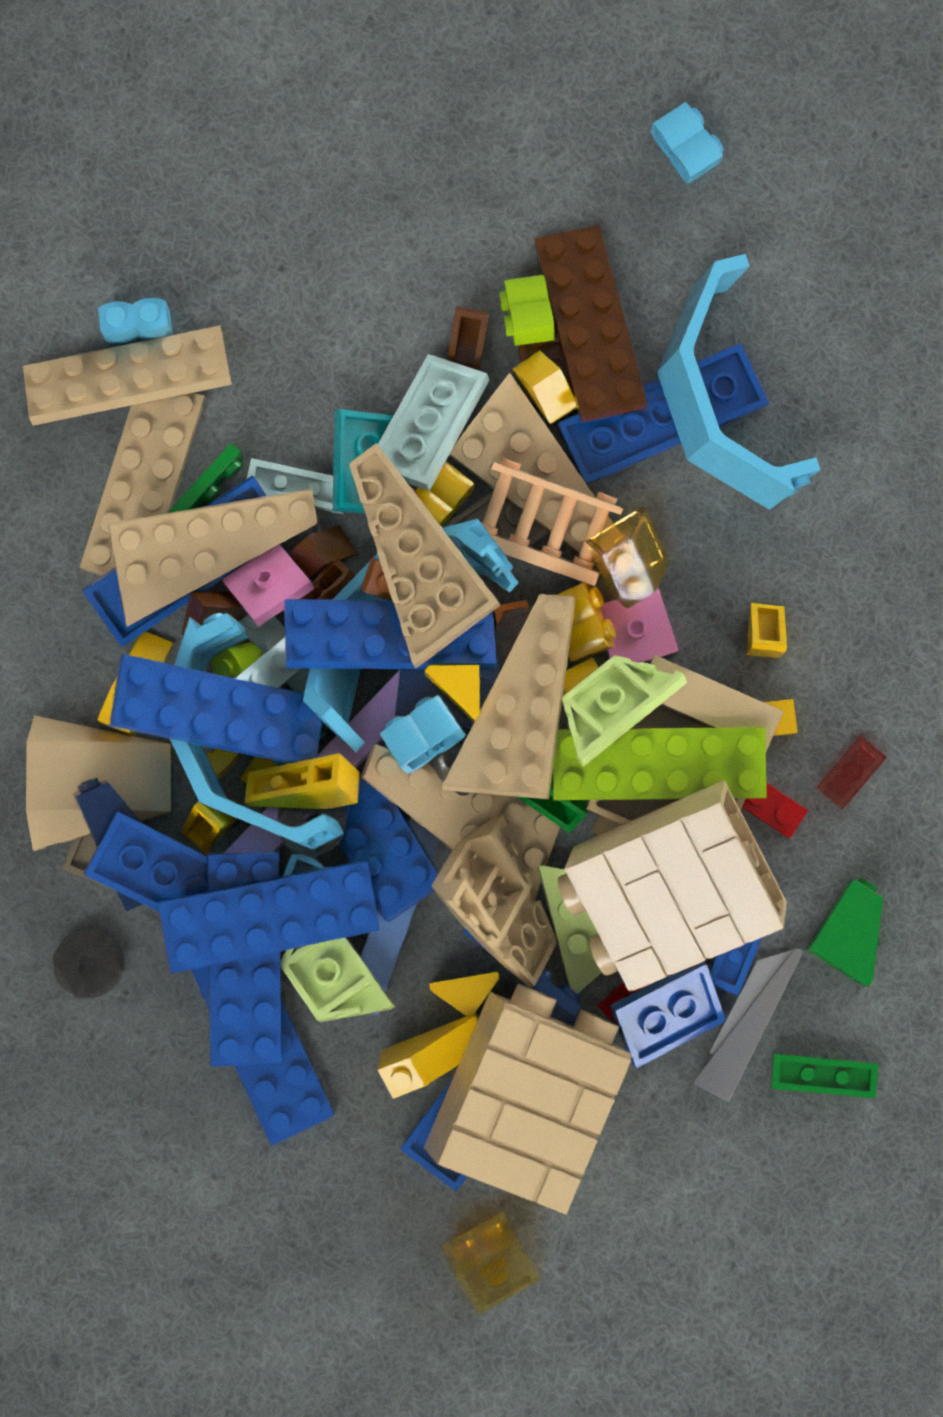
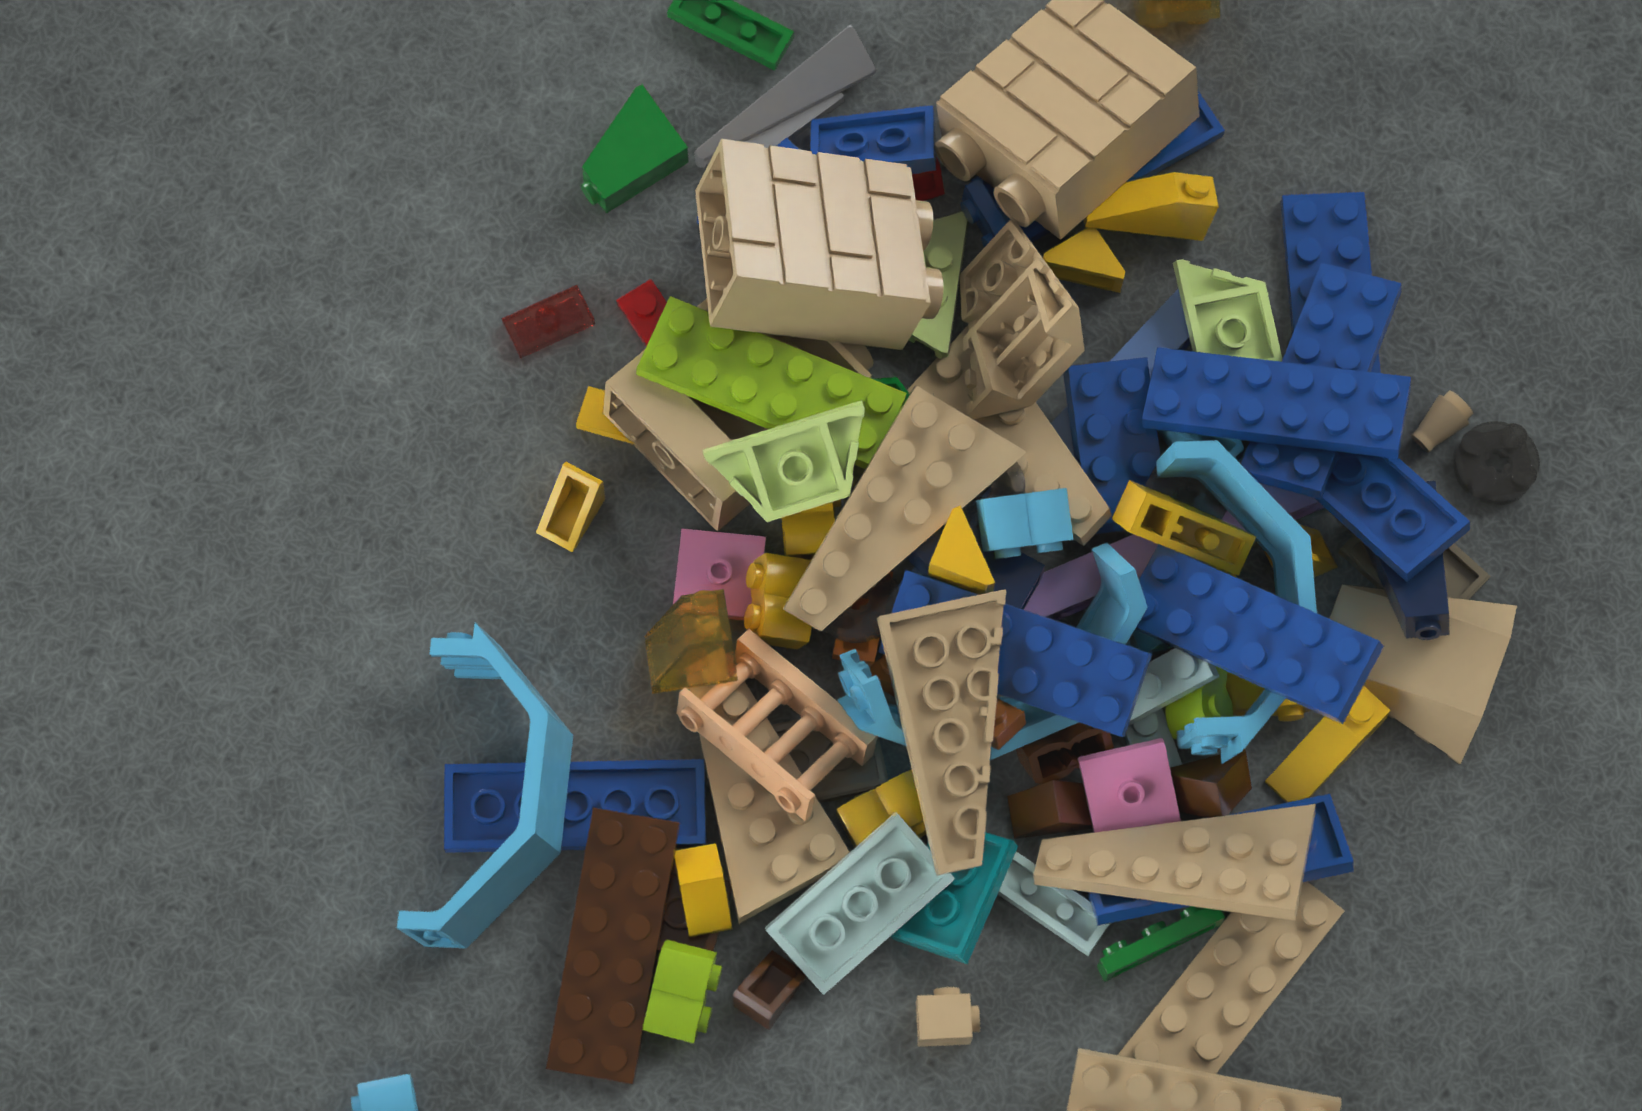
camera: 155 degrees left, 10 degrees down
(142, 977) = (1442, 420): none -> tan cone
(334, 371) = (946, 1018): none -> tan brick

